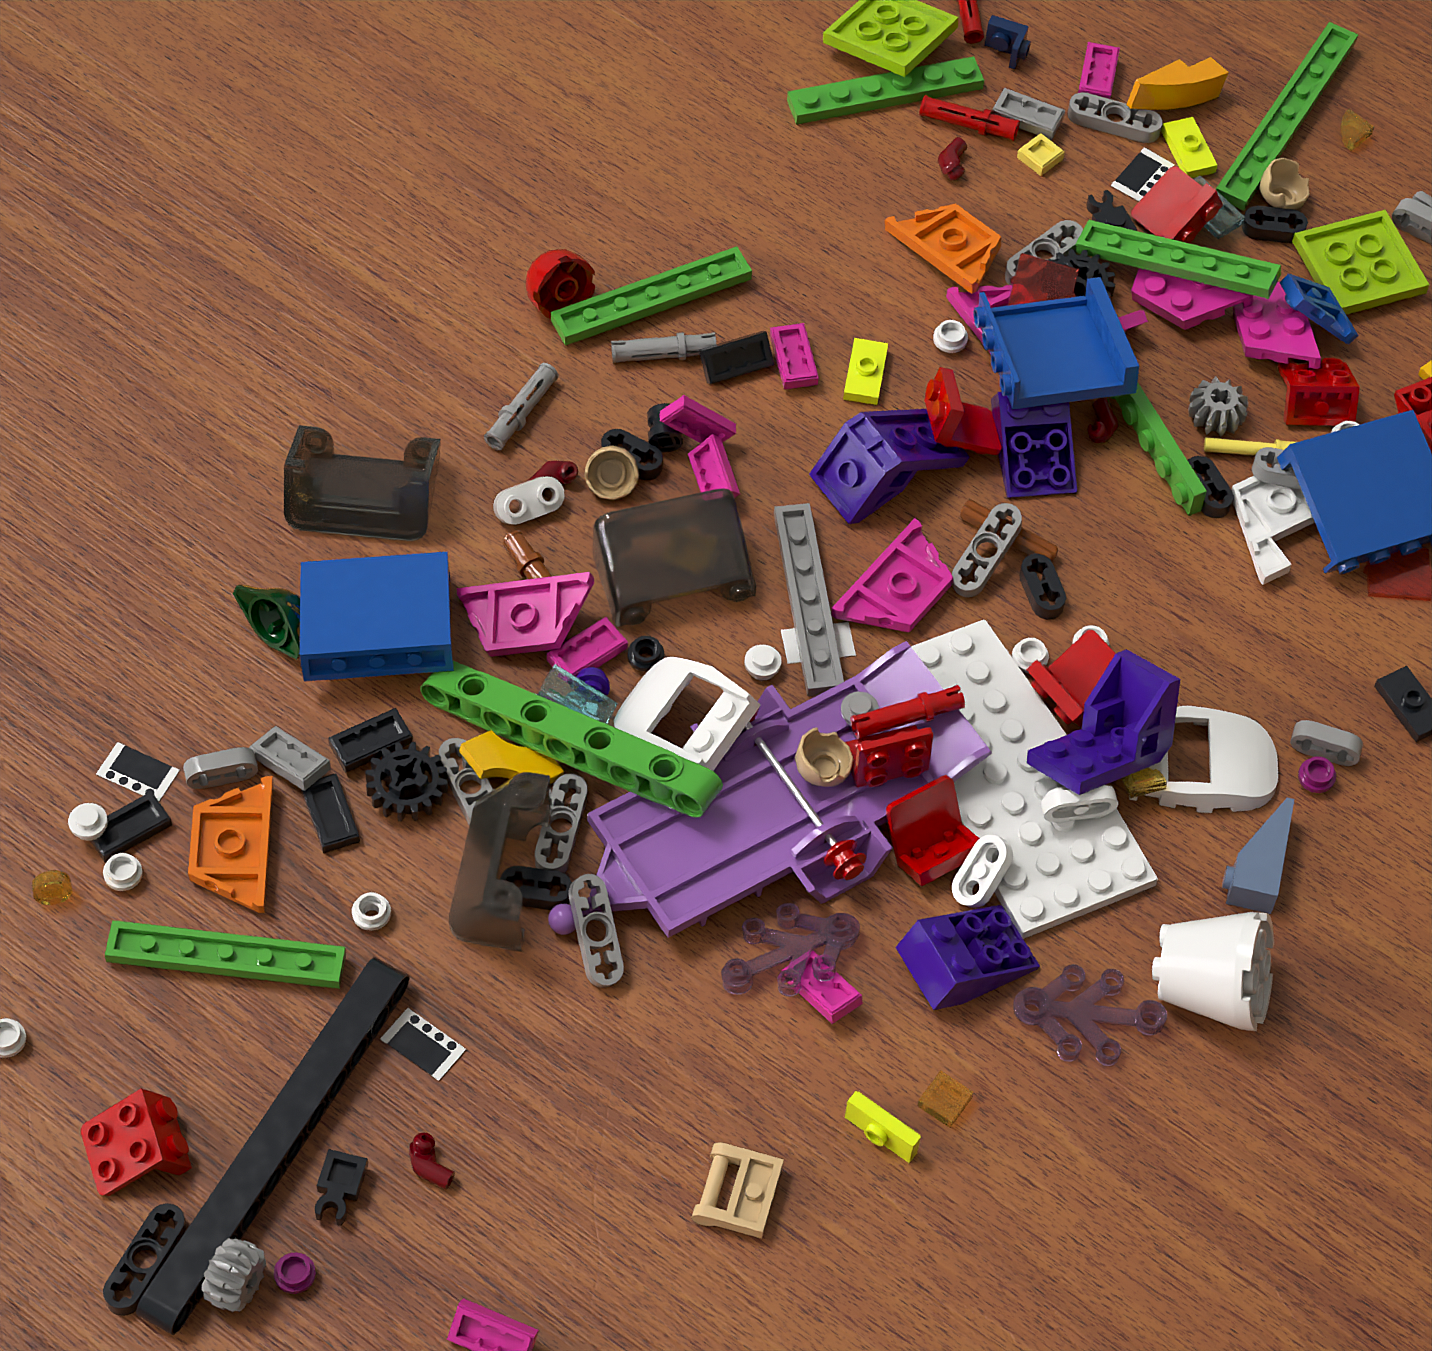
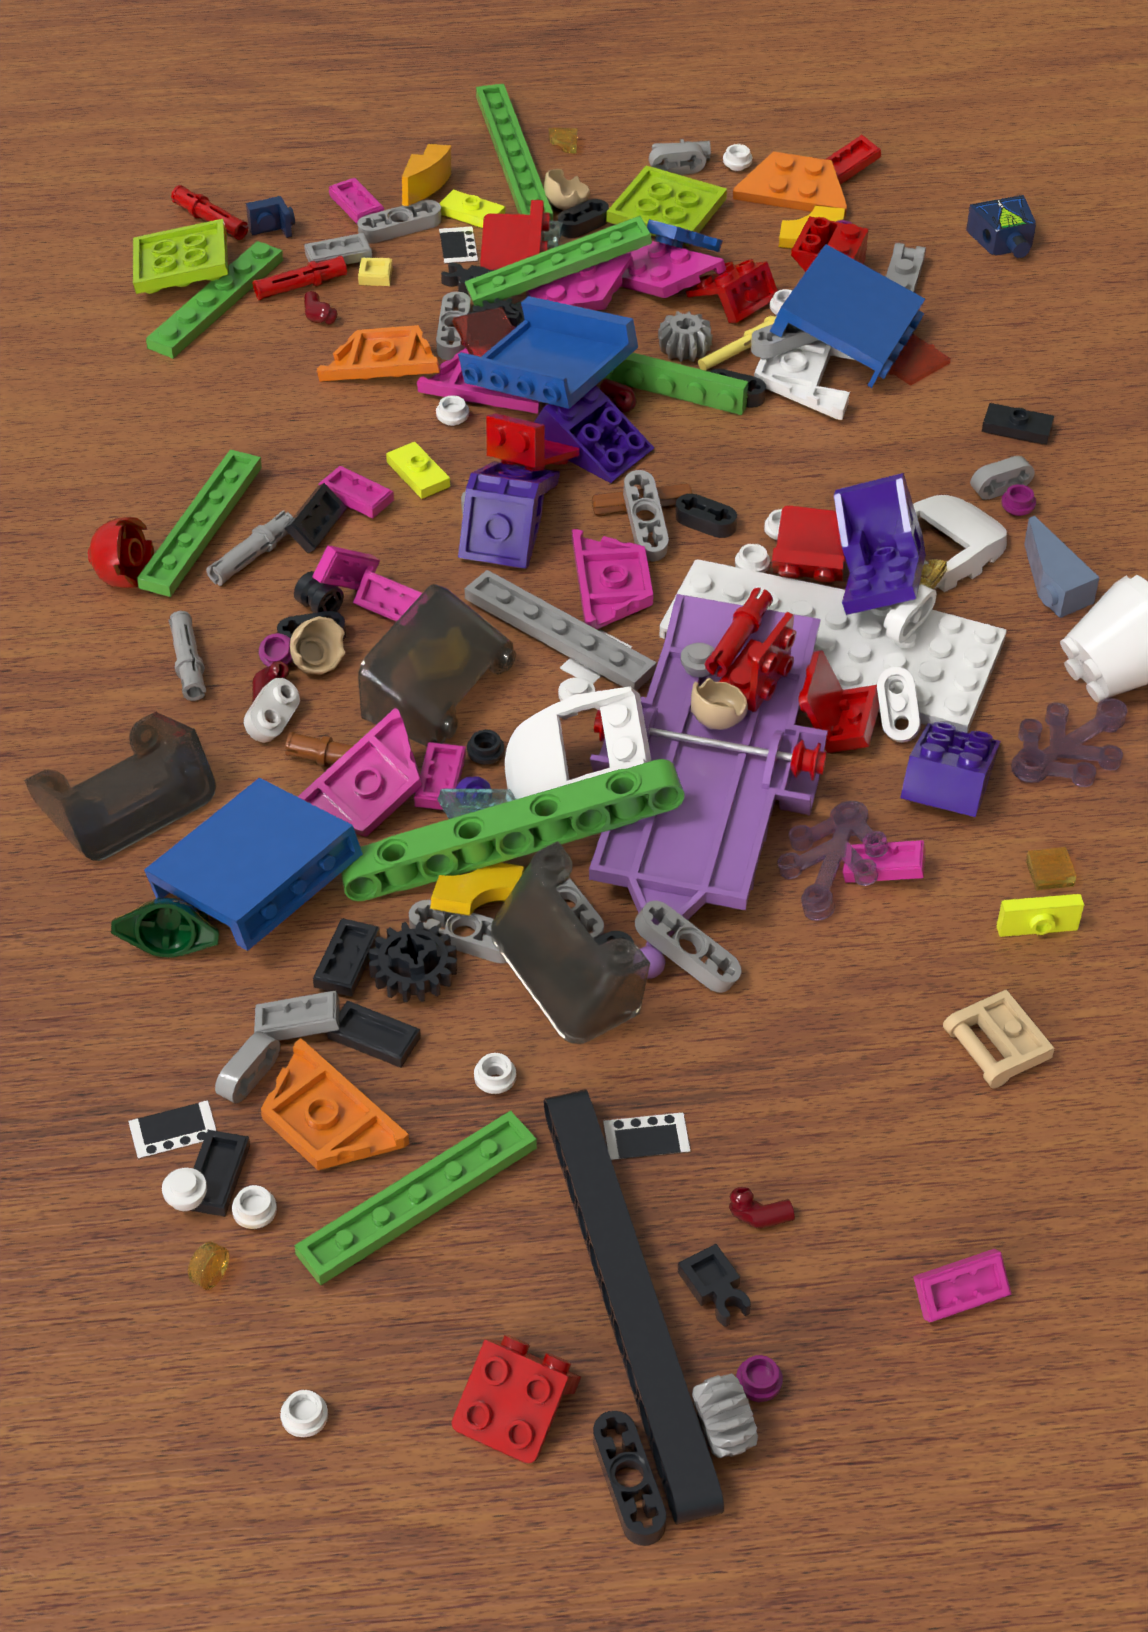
camera: 40 degrees left, 10 degrees down
(582, 449) = (275, 648): none -> magenta plate

